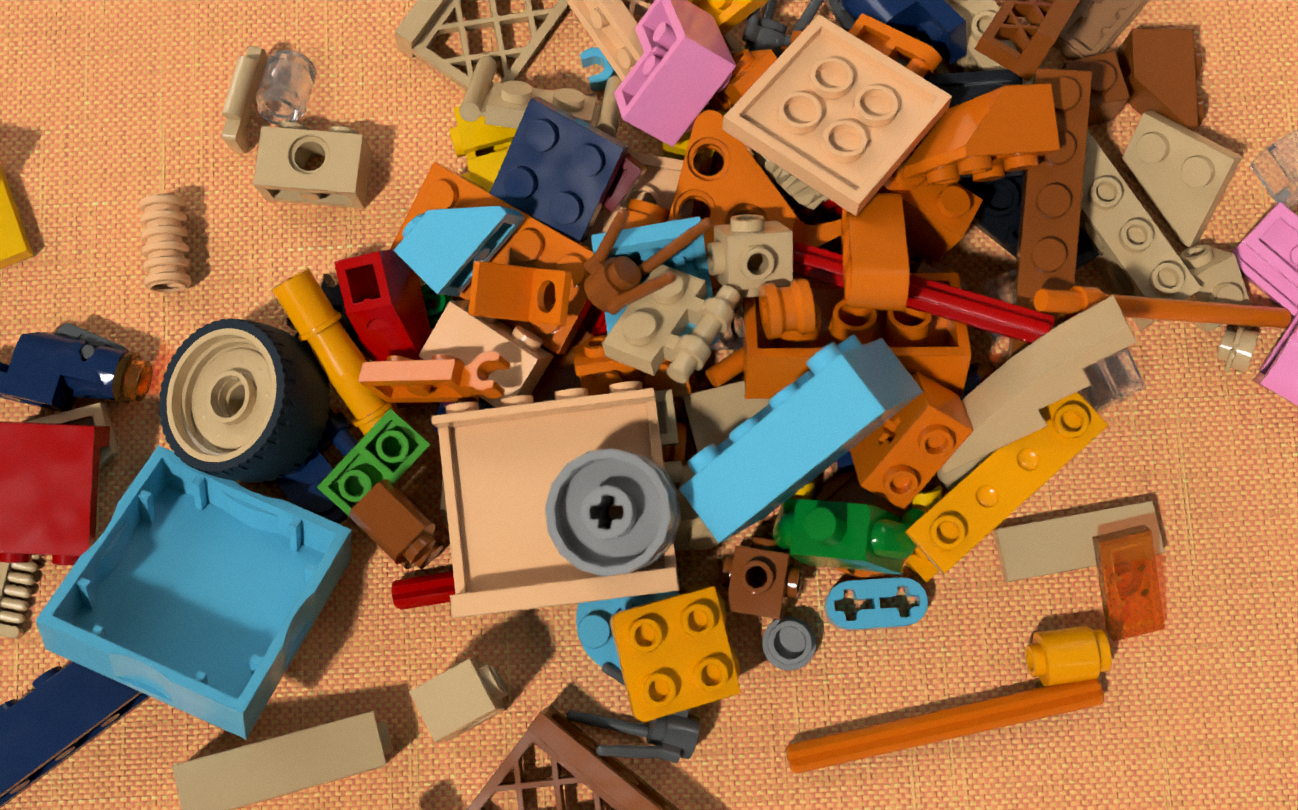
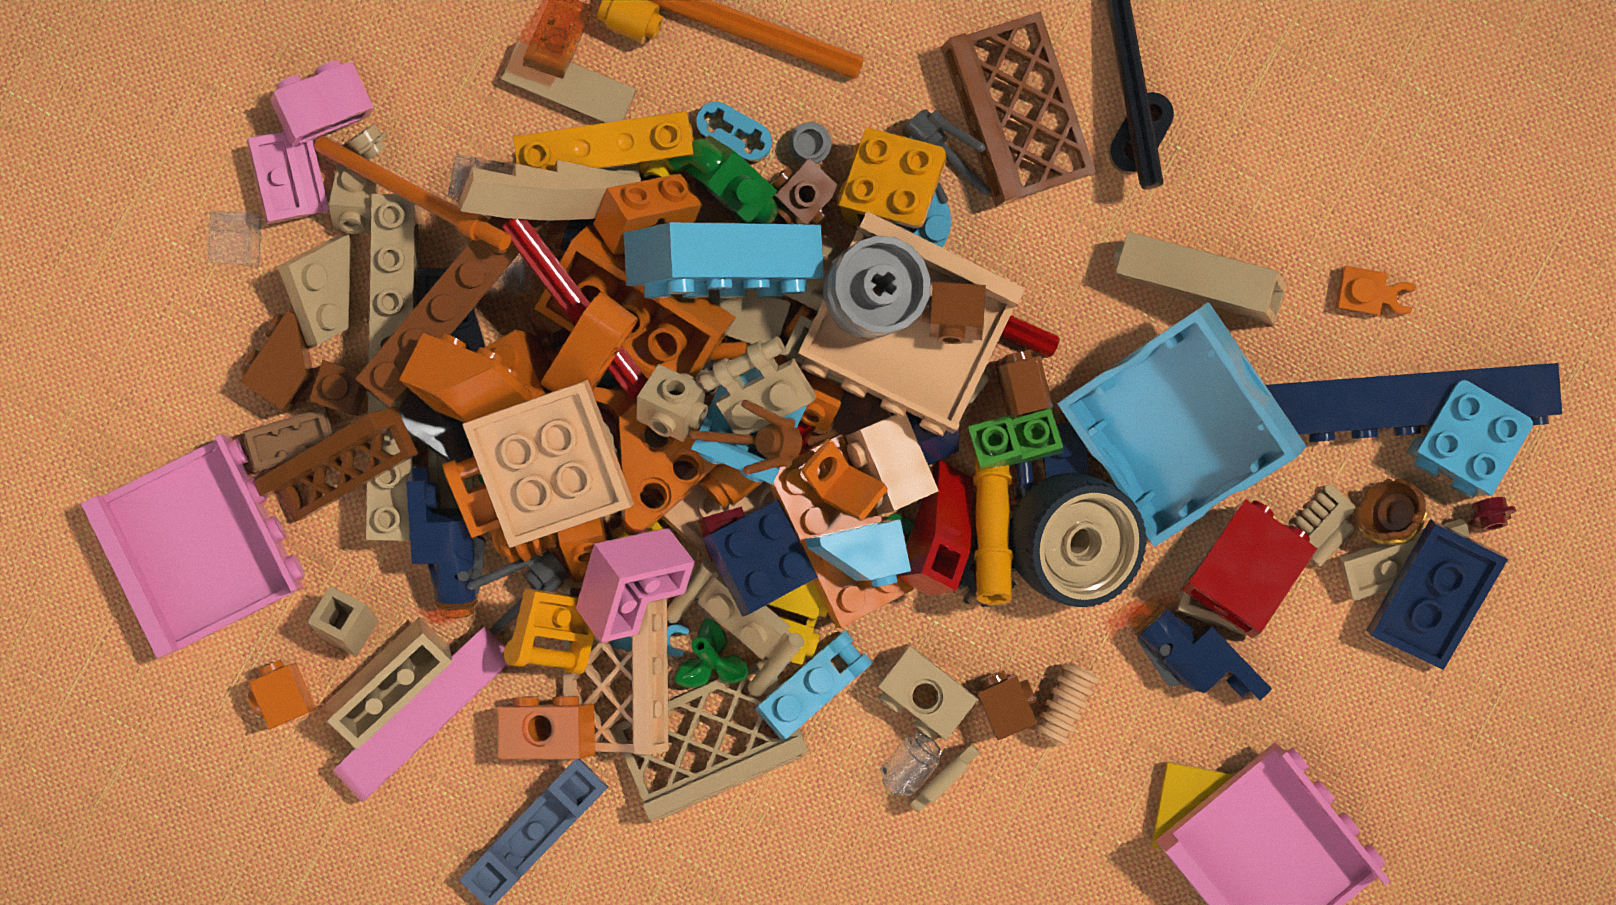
camera: 155 degrees left, 10 degrees up
(224, 203) = (1007, 703): none -> dark orange brick
(429, 102) = (812, 686): none -> medium azure plate
(435, 379) = (934, 459): orange plate -> none
(460, 699) = (1052, 241): tan brick -> none
(512, 543) = (955, 312): none -> dark orange brick
(556, 52) = (708, 647): none -> green plant
(787, 308) = (674, 348): orange wheel -> none

